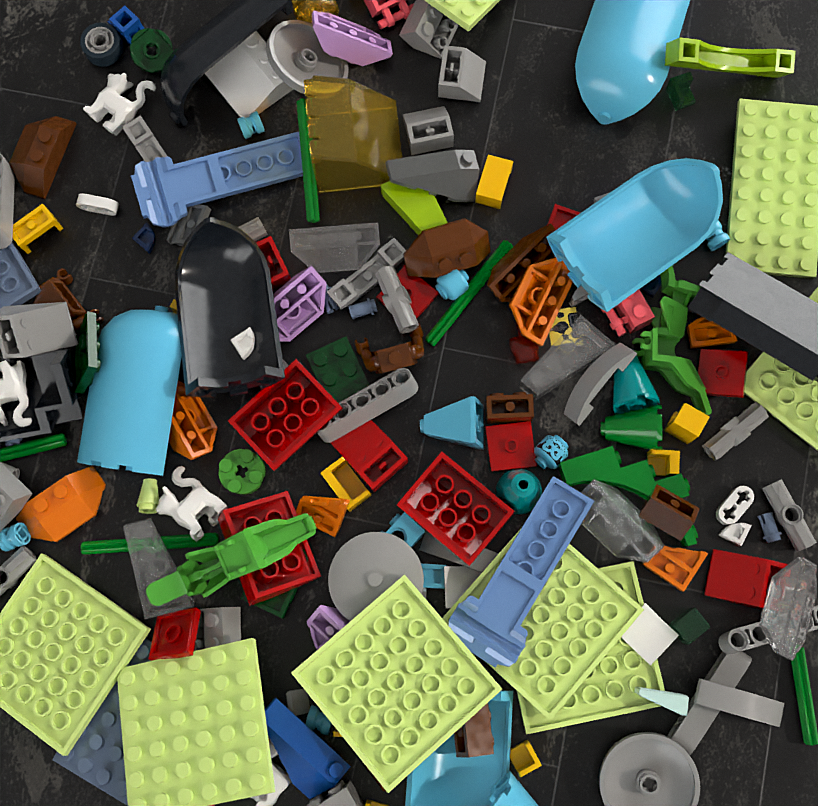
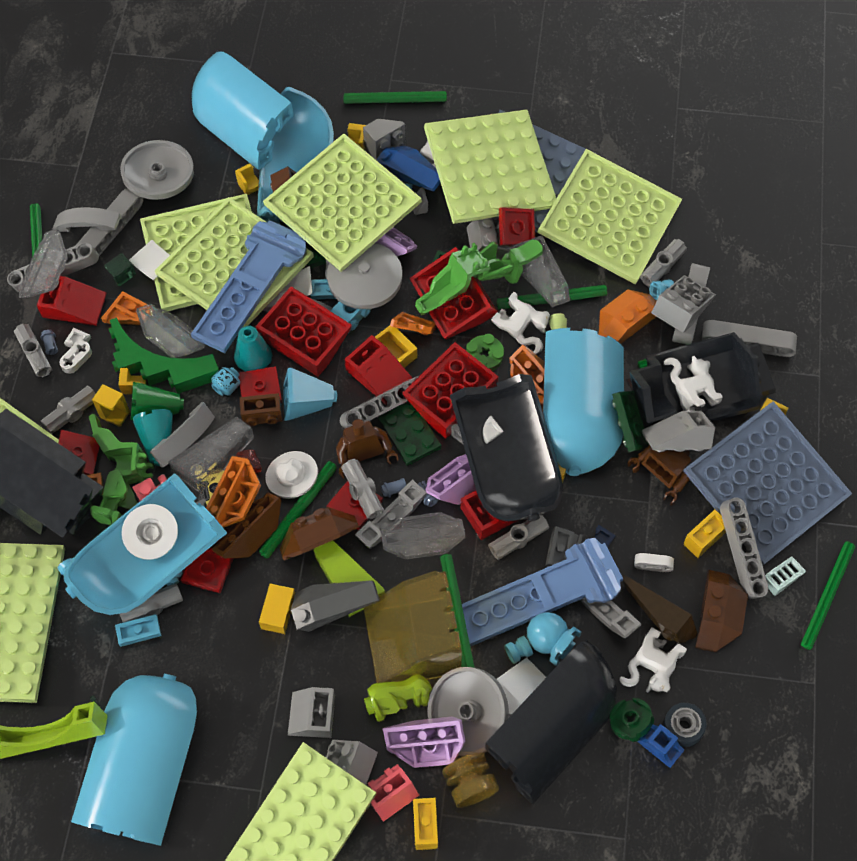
camera: 170 degrees right, 15 degrees down
(93, 134) = (670, 619): none -> dark brown wedge
(213, 127) = (551, 636): none -> medium azure tile
(386, 79) = (392, 696): none -> lime animal
(428, 130) = (343, 655): light grey slope -> none
(452, 284) = (310, 505): medium azure head -> none
(475, 332) = (291, 474): none -> white hat
(628, 169) = (138, 630): none -> medium azure plate
(631, 246) = (149, 531): none -> white hat
(669, 512) = (131, 331): reddish brown brick -> none
(673, 701) = (143, 217): light aqua slope -> none

